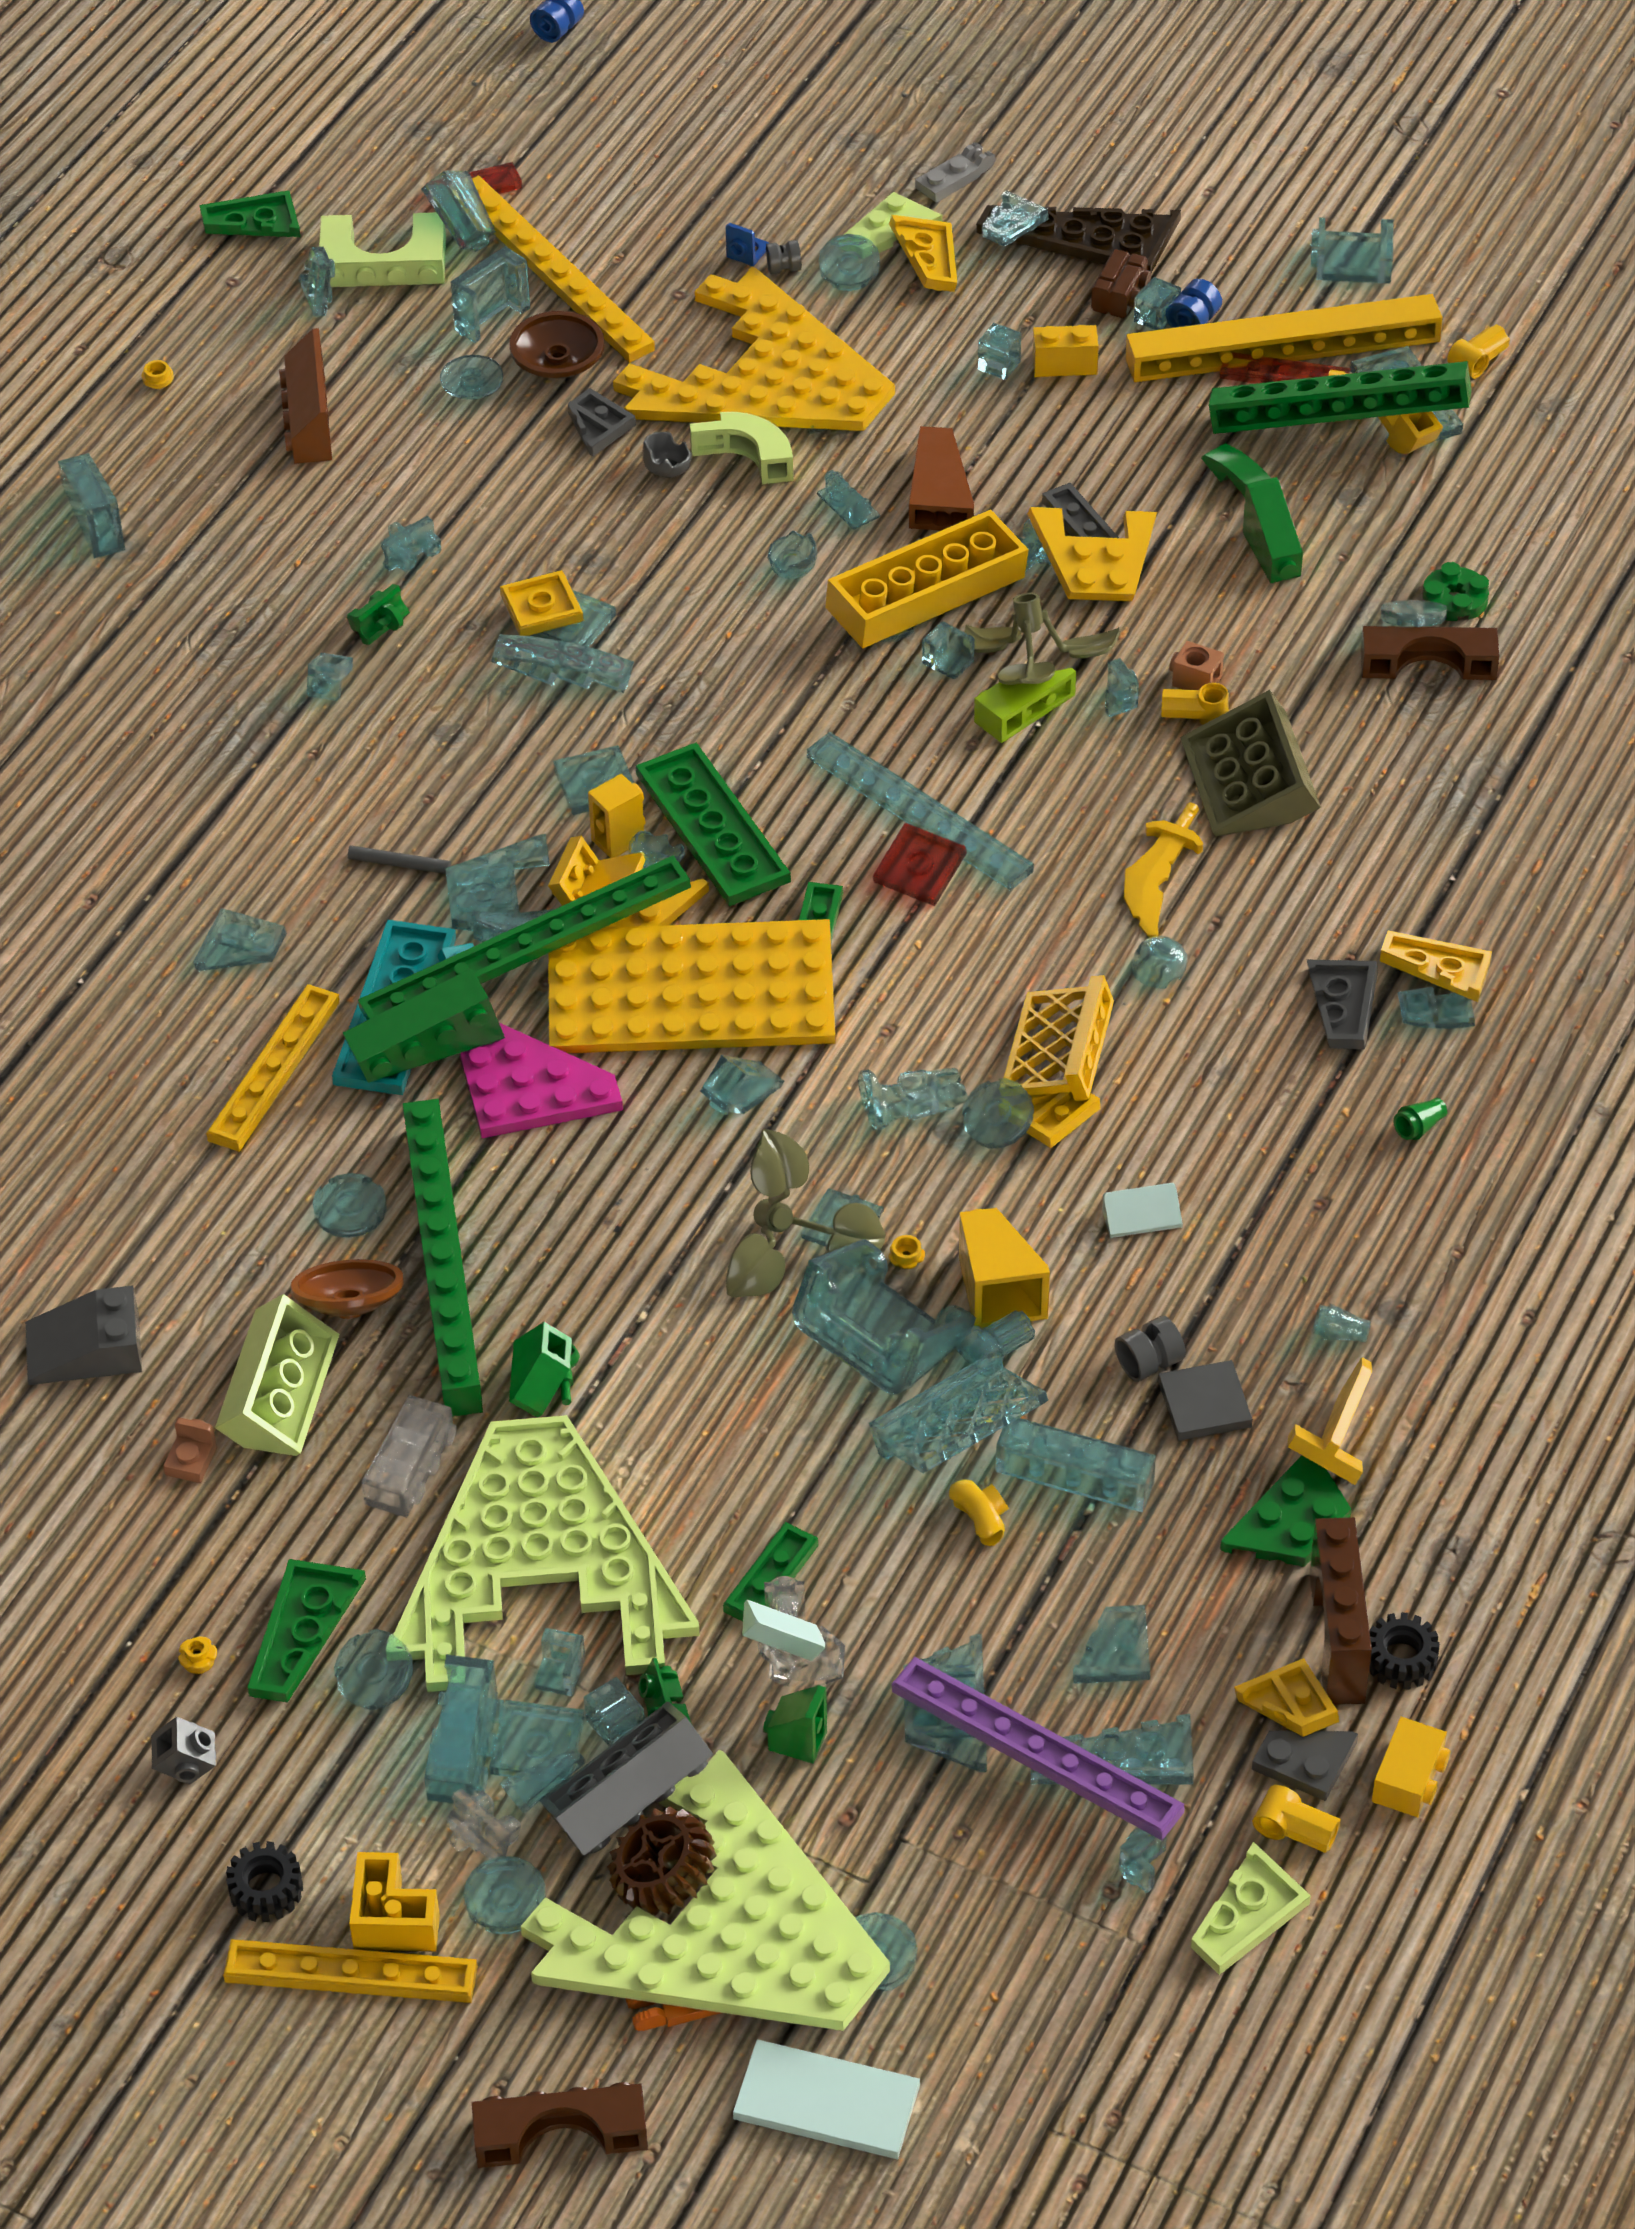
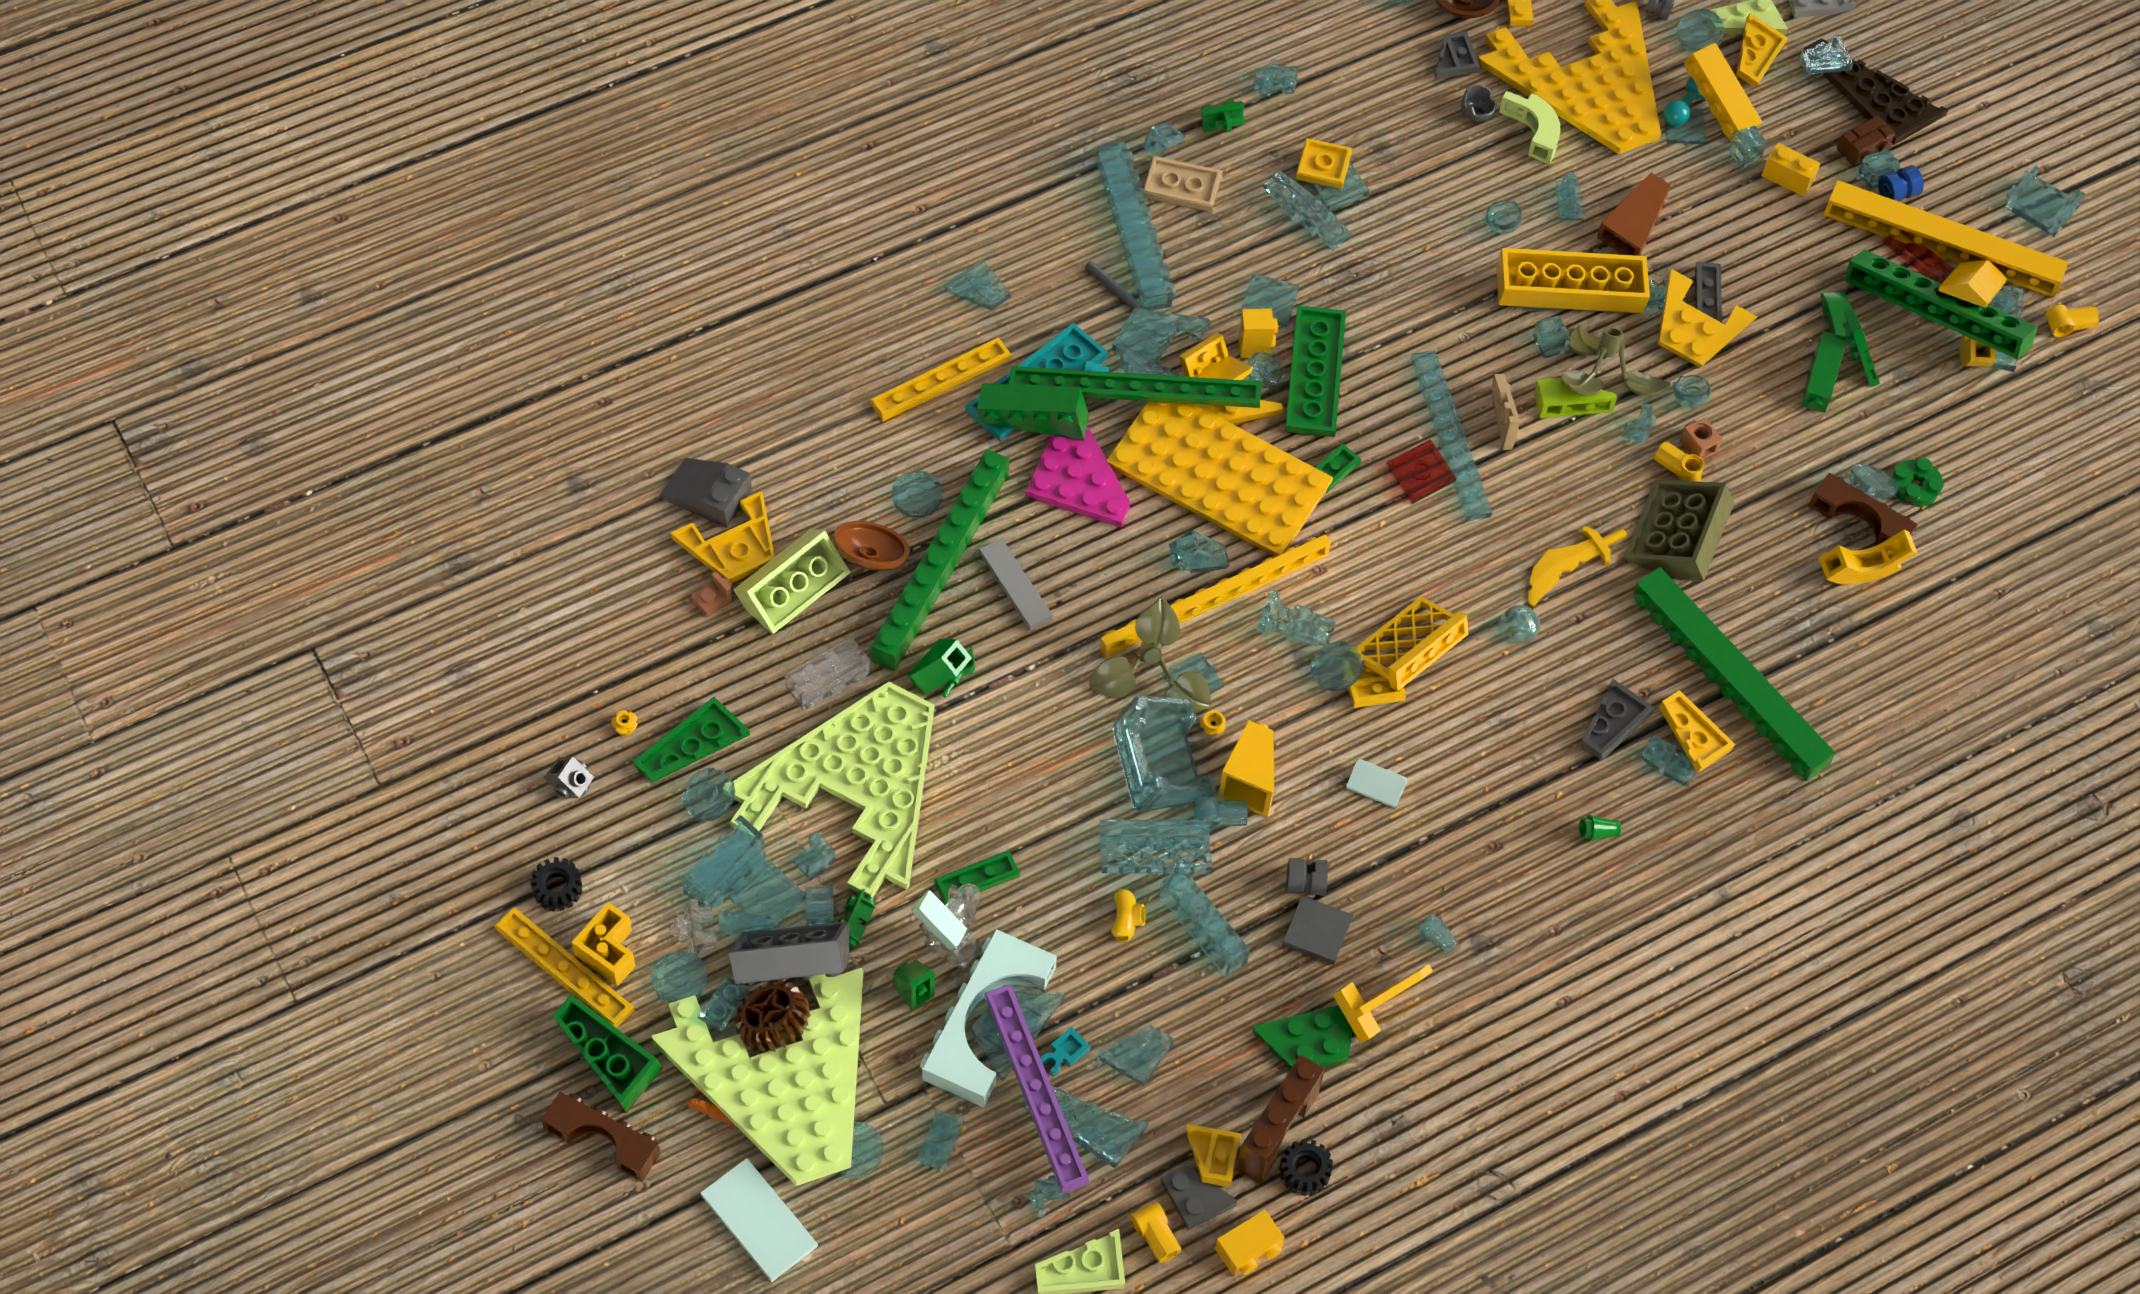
camera: 30 degrees right, 10 degrees up
(182, 1383) = (736, 551): none -> yellow wing
(373, 781) = (1134, 226): none -> clear light blue brick
(389, 711) = (1182, 183): none -> tan tile
(489, 2023) = (612, 1055): none -> green wedge
(551, 1236) = (1015, 584): none -> light grey tile
(586, 1886) = (723, 1004): none -> clear light blue slope
(802, 1110) = (1226, 590): none -> yellow plate
(894, 319) = (1677, 111): none -> teal piece
(910, 367) = (1691, 132): none -> clear light blue piece
(913, 1784) = (952, 1062): none -> light aqua arch
(930, 306) = (1722, 90): none -> yellow brick
(965, 750) = (1505, 411): none -> tan wing
(968, 1878) = (941, 1140): none -> clear light blue slope
(1033, 1691) = (1066, 1049): none -> teal plate
(1147, 626) = (1691, 391): none -> clear light blue hair
(1292, 479) = (1858, 346): none -> green wing
(1356, 358) = (1974, 282): none -> yellow slope
(1429, 882) = (1733, 674): none -> green brick
(1483, 692) = (1870, 564): none -> yellow arch

